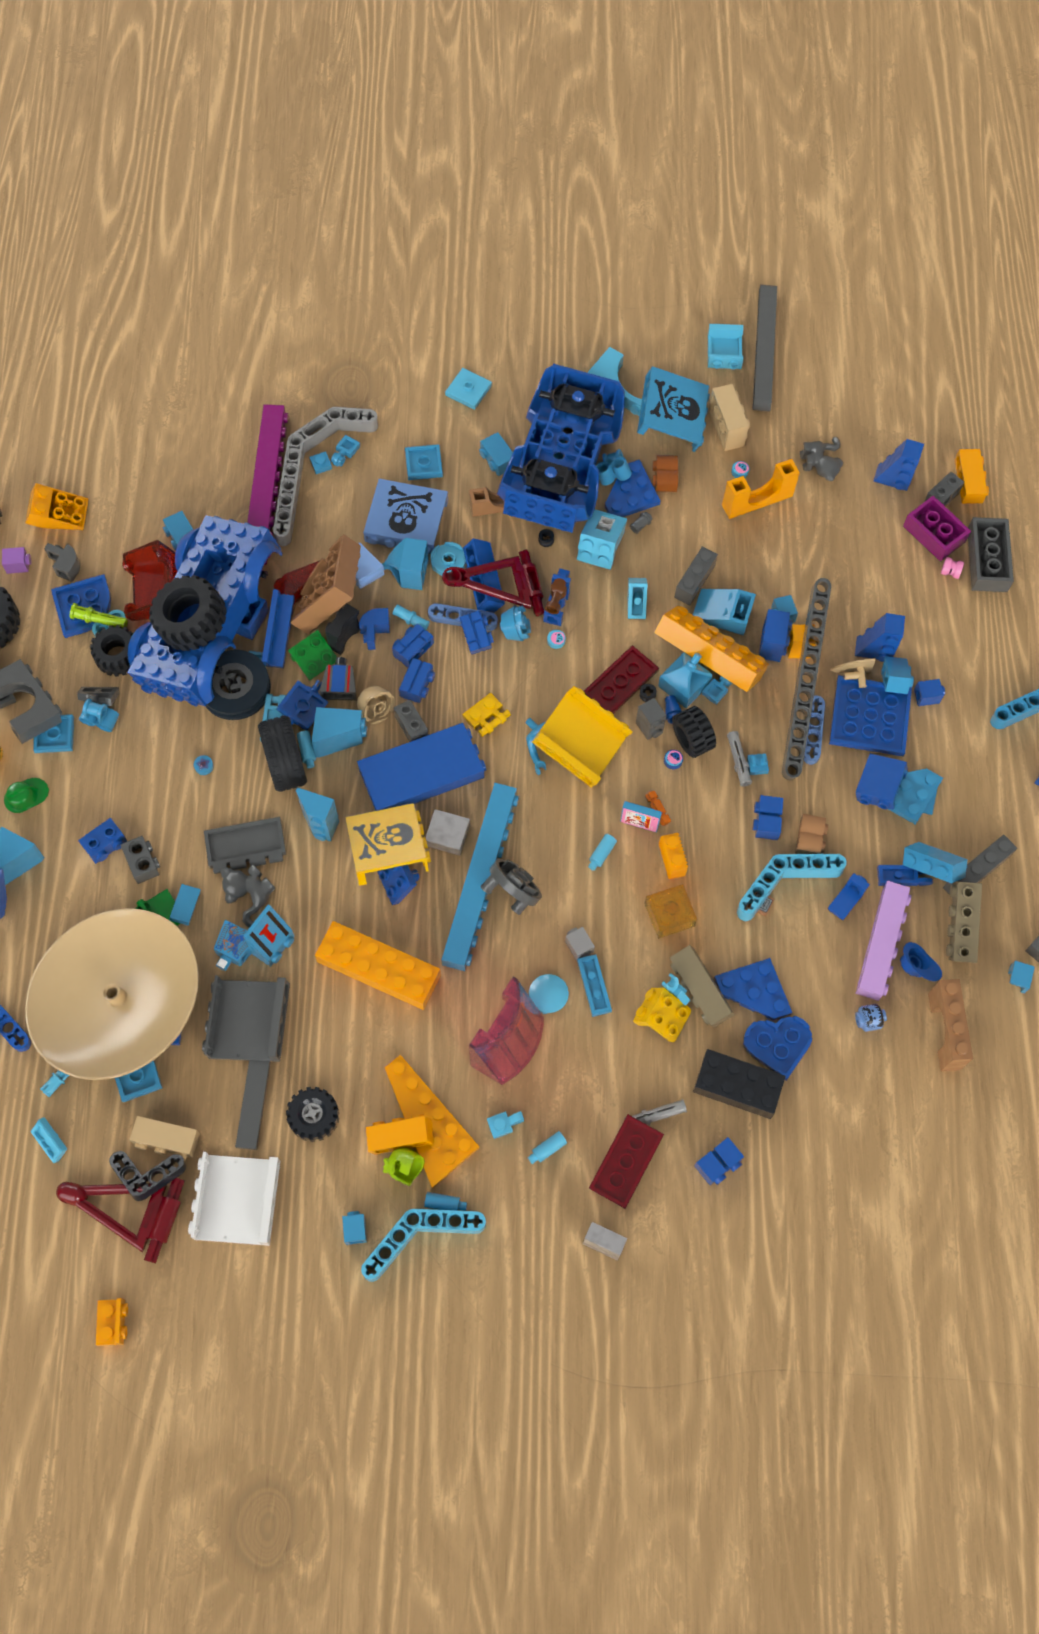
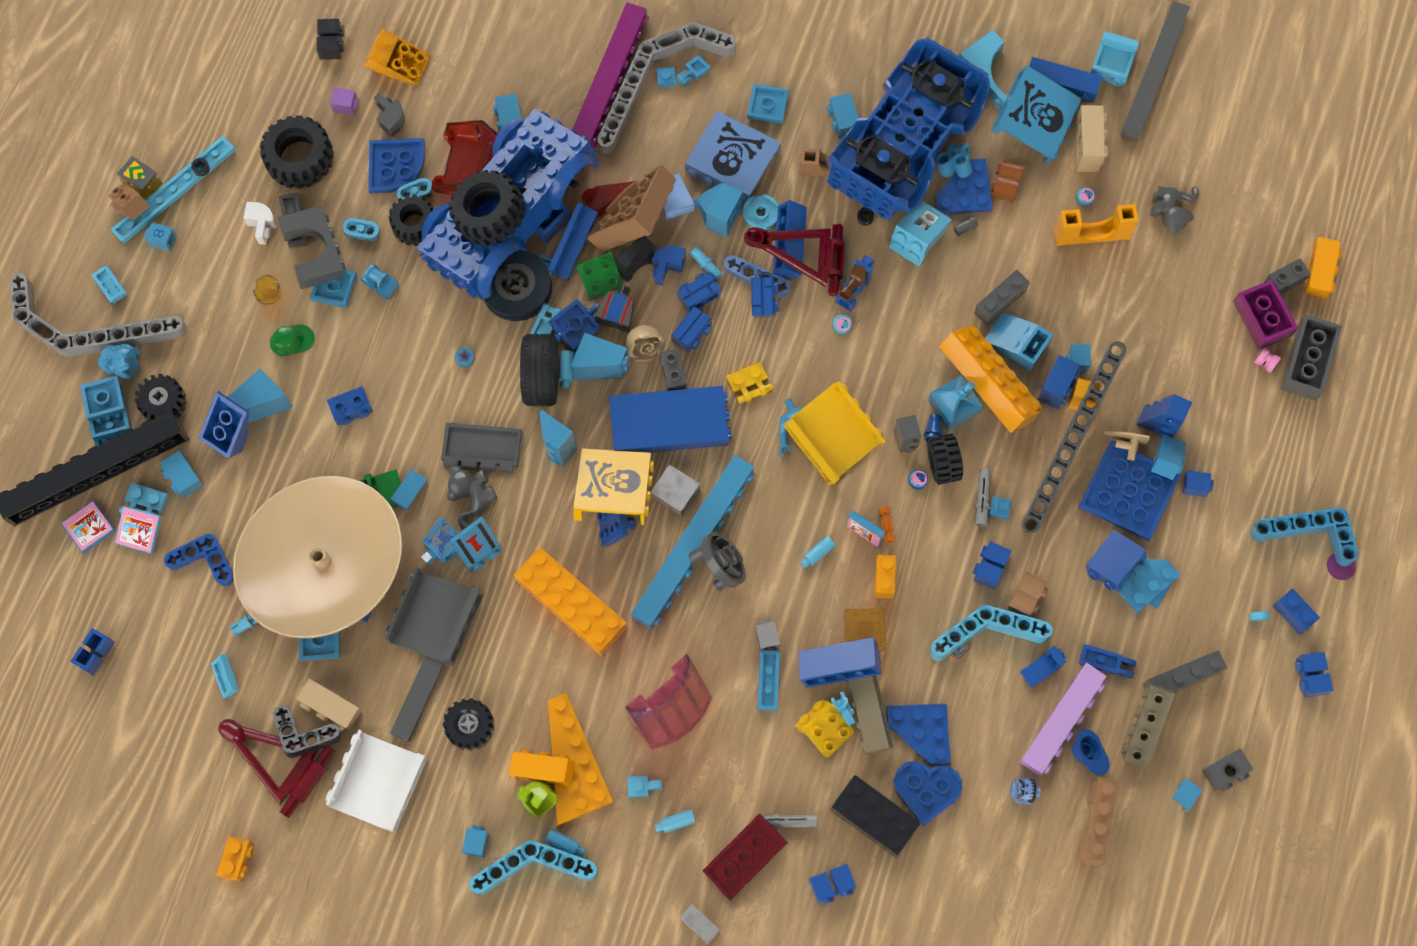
camera: 20 degrees right, 5 degrees up
(67, 673) = (362, 229): none -> medium azure plate
(90, 615) = (399, 178): lime pin -> none
(99, 694) = (385, 260): dark grey wing -> none
(138, 860) = (375, 435): dark grey brick -> none
(468, 388) = (837, 36): medium azure plate -> none
(515, 624) = (805, 299): dark azure cone -> none
(549, 993) = (723, 675): medium azure dish -> none
(622, 680) = (892, 385): dark red tile -> none
(637, 598) = (935, 304): medium azure slope -> none
(652, 689) = (920, 403): black bush -> none
(658, 947) = (839, 662): none -> brick
(703, 372) = (1077, 81): none -> blue brick
(716, 690) = (983, 421): dark azure plate -> none
(815, 730) = (1069, 489): medium blue beam -> none
(900, 466) = (1248, 238): blue wedge -> none
(935, 862) = (1138, 658): dark azure brick -> none
(1027, 794) = (1259, 616): none -> medium azure tile

